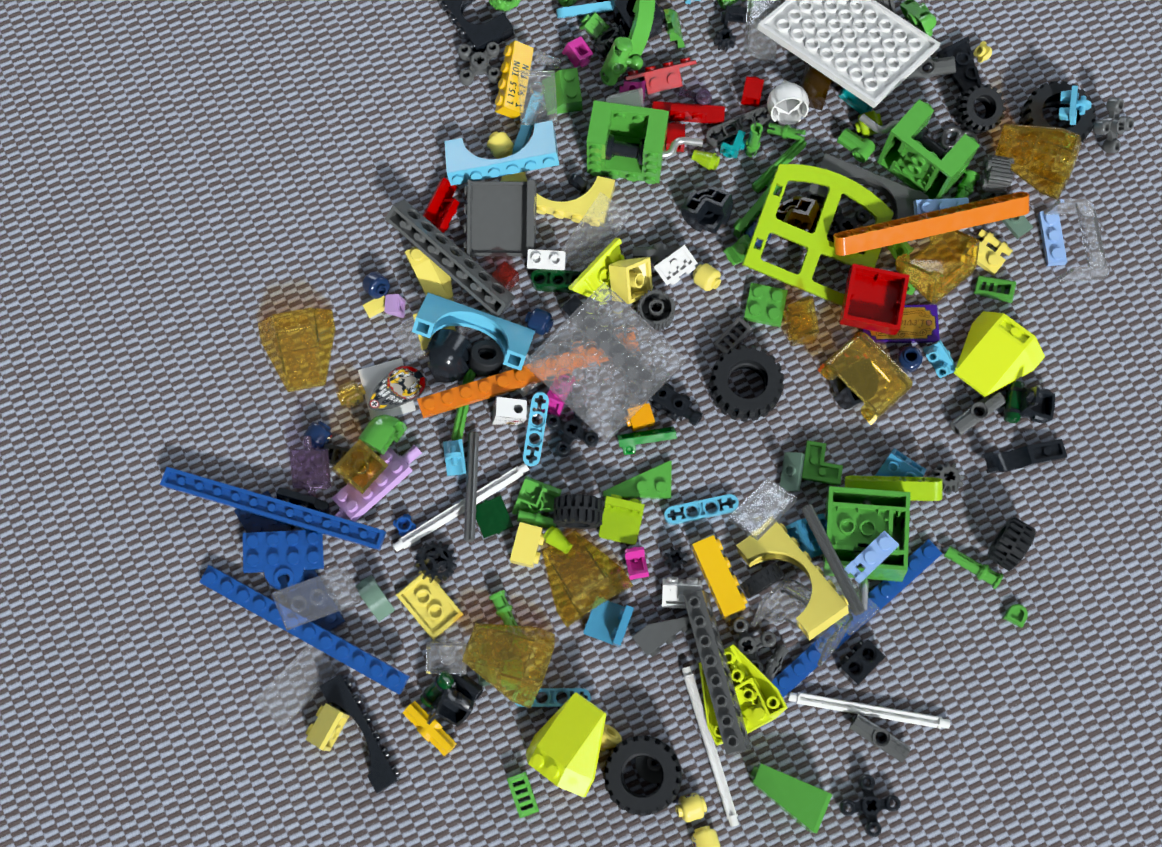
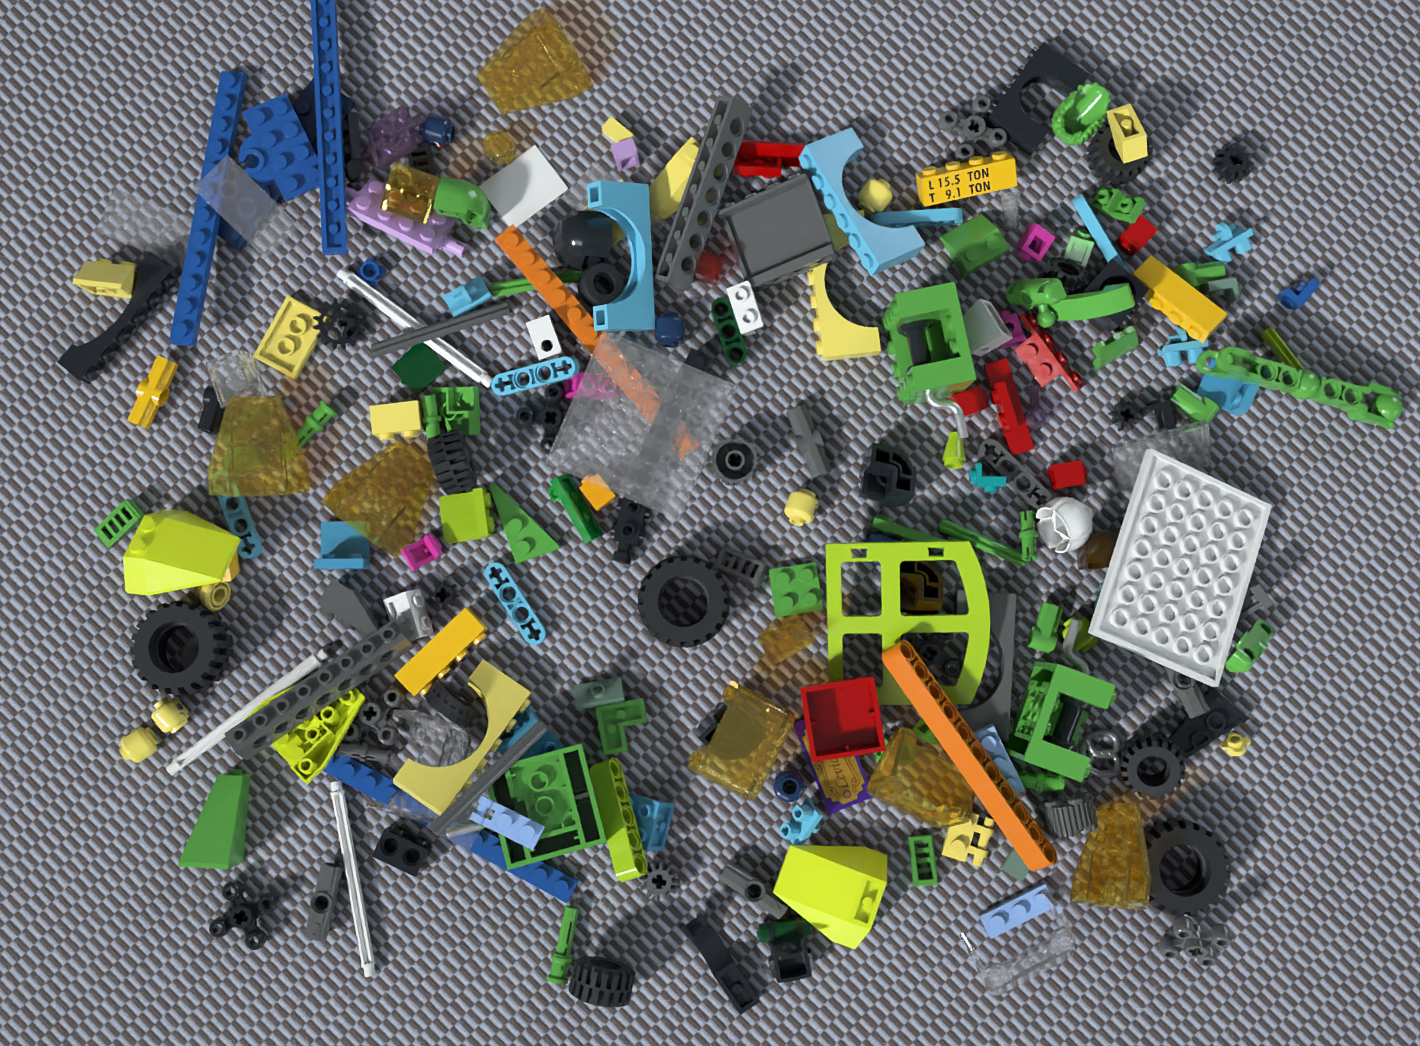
camera: 65 degrees right, 10 degrees up
(375, 598) = (270, 272): sand green brick -> none
(376, 285) = (640, 121): dark blue head -> none
(397, 388) = (524, 198): shield -> none
(446, 701) = (183, 398): black piece -> none
(537, 96) = (951, 215): clear tile -> none
(557, 539) = (413, 452): lime cone -> none
(577, 182) = (863, 308): black tile -> none
(595, 231) = (802, 352): clear tile -> none
(598, 270) = (757, 383): neon yellow wing -> none
(631, 278) = (760, 417): light yellow slope -> none
(676, 265) = (798, 463): white bracket -> none
(738, 250) = (847, 531): bright green bracket -> none
(753, 141) = (995, 499): bright green pin -> none
(762, 509) = (539, 674): clear tile -> none
(1016, 615) = (527, 1013): bright green tile -> none
(1071, 97) = (1205, 878): medium azure hips -> none

